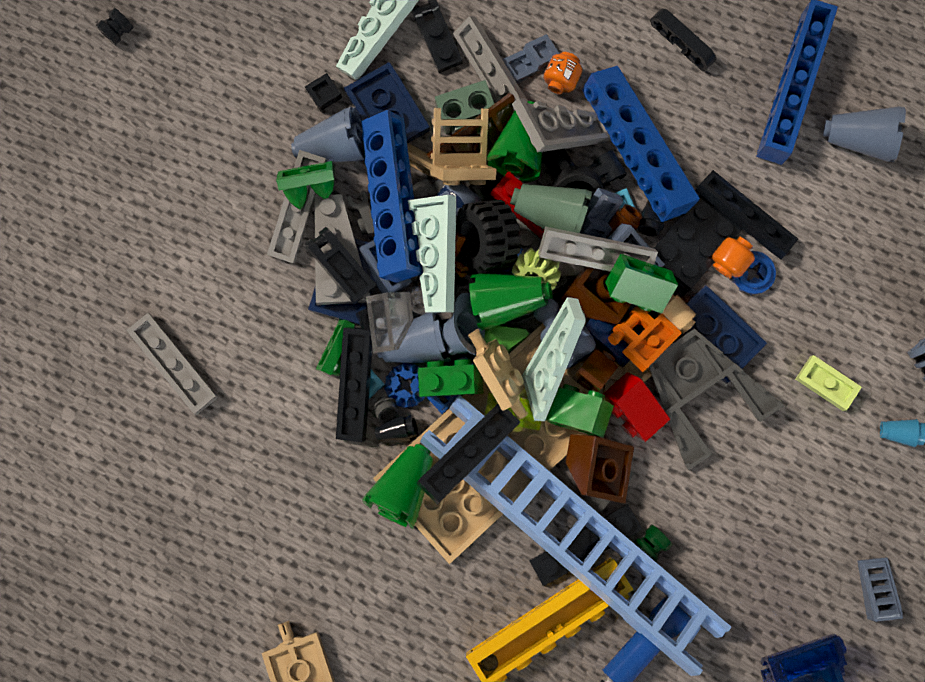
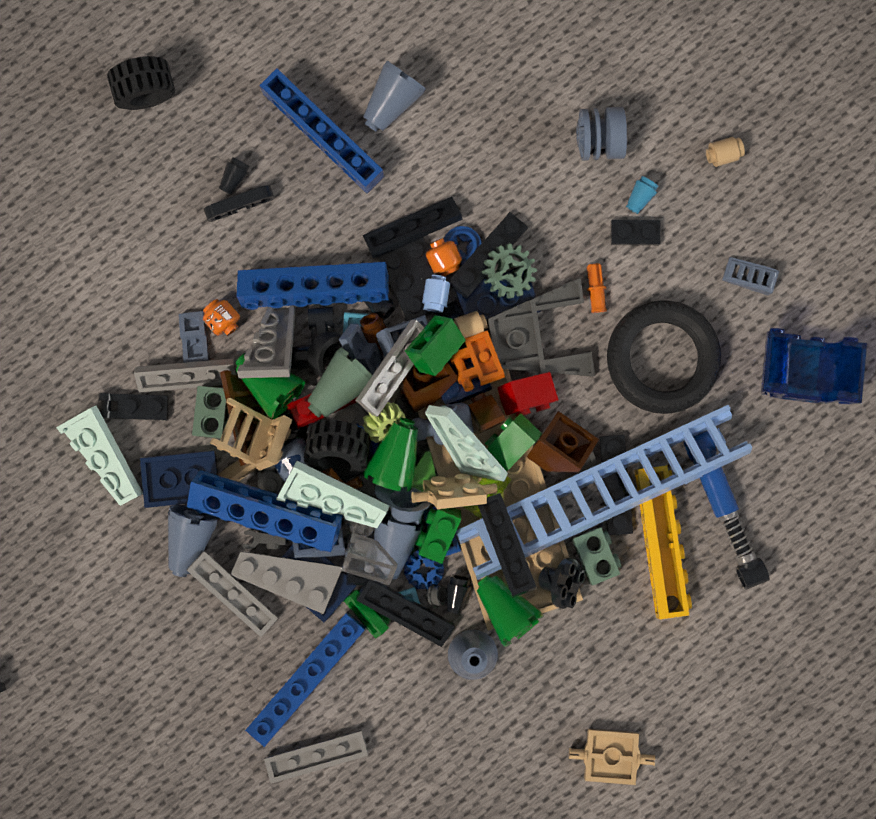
camera: 75 degrees left, 5 degrees up
(244, 316) = (305, 679): none -> blue brick
(295, 182) = (213, 585): green tile -> none
(323, 92) = (138, 526): black plate -> none
(340, 266) = (304, 580): black plate -> none
(352, 475) = (470, 644): none -> sand blue cone
(457, 532) = (562, 582): none -> black plate
(496, 552) = (590, 558): none -> sand green brick
(656, 540) = (637, 427): dark green wheel -> none
(692, 265) = (436, 294): none -> light blue brick
(707, 22) = (233, 175): none -> black cone
(757, 301) = (470, 273): none -> black plate
(762, 320) = (514, 278): none -> sand green gear
(780, 429) = (596, 288): none -> orange axle
(797, 528) = (695, 326): none -> black tyre
(828, 383) = (577, 232): yellowish green plate -> none
(860, 444) = (635, 232): none -> black plate

